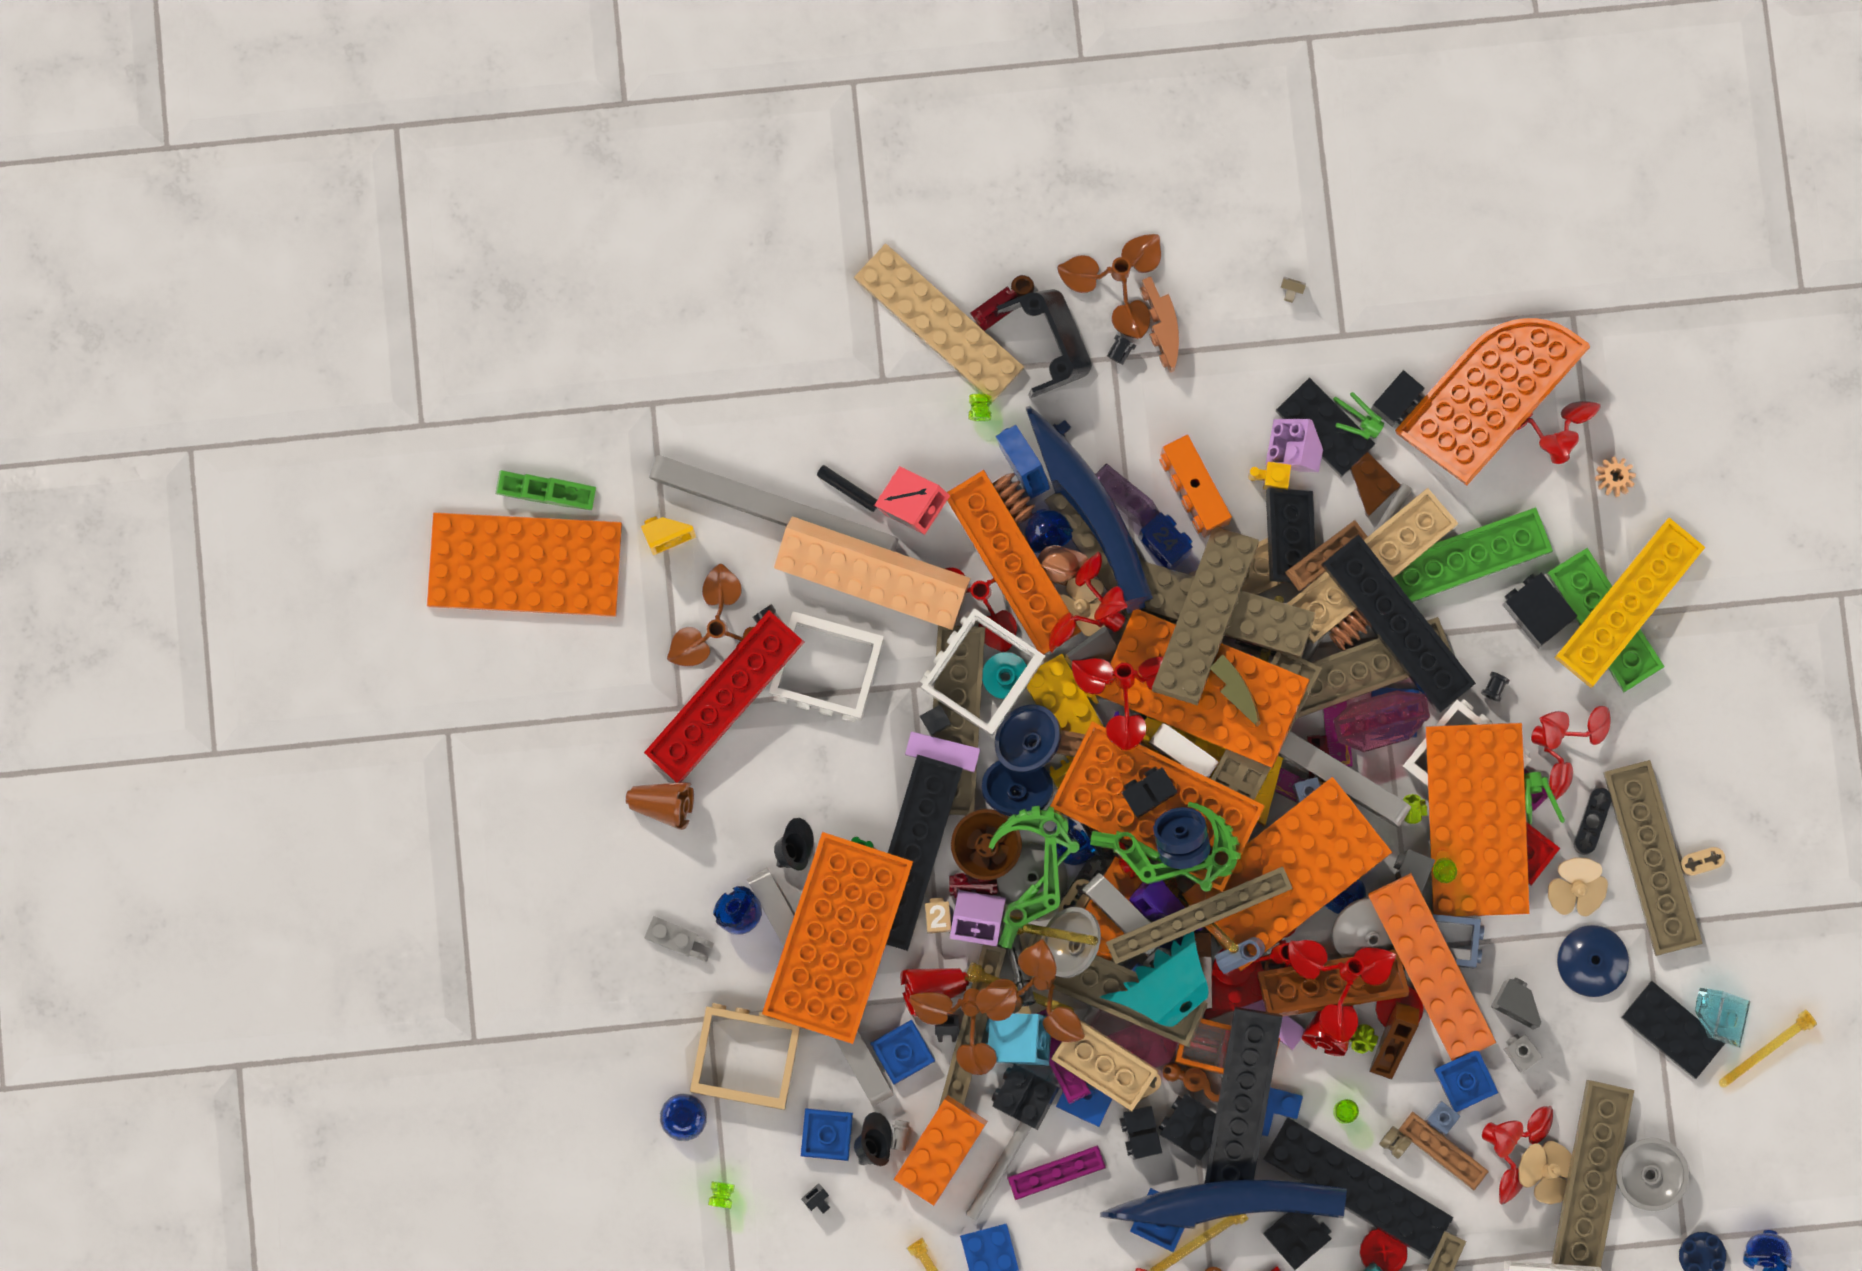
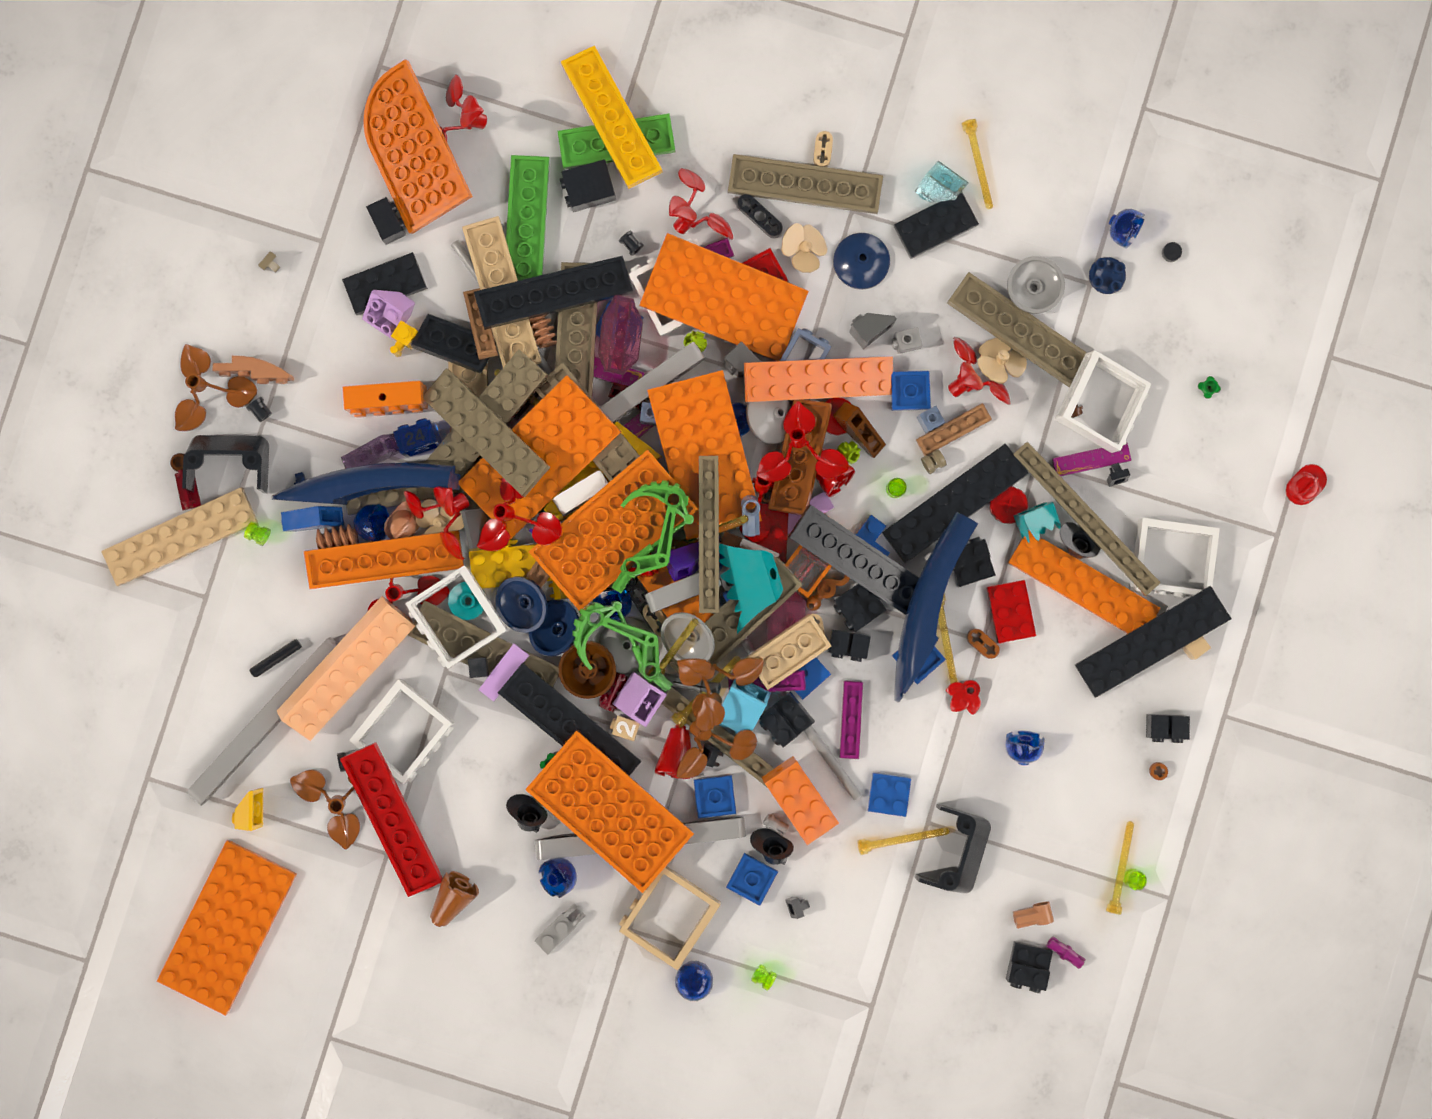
camera: 65 degrees left, 5 degrees up
(545, 490) = (177, 888): bright green slope -> none
(912, 500) = (304, 614): coral brick -> none
(1149, 792) = (600, 531): black piece -> none
(1181, 838) = (646, 522): dark blue wheel -> none
(1236, 689) = (550, 432): olive slope -> none
(1371, 425) = (397, 249): bright green plant -> none
(1372, 483) = (441, 267): reddish brown wing -> none
(1444, 870) = (751, 337): clear neon green wheel -> none
(1533, 784) = (715, 245): bright green plant -> none
(1623, 476) = (511, 93): light nougat gear -> none

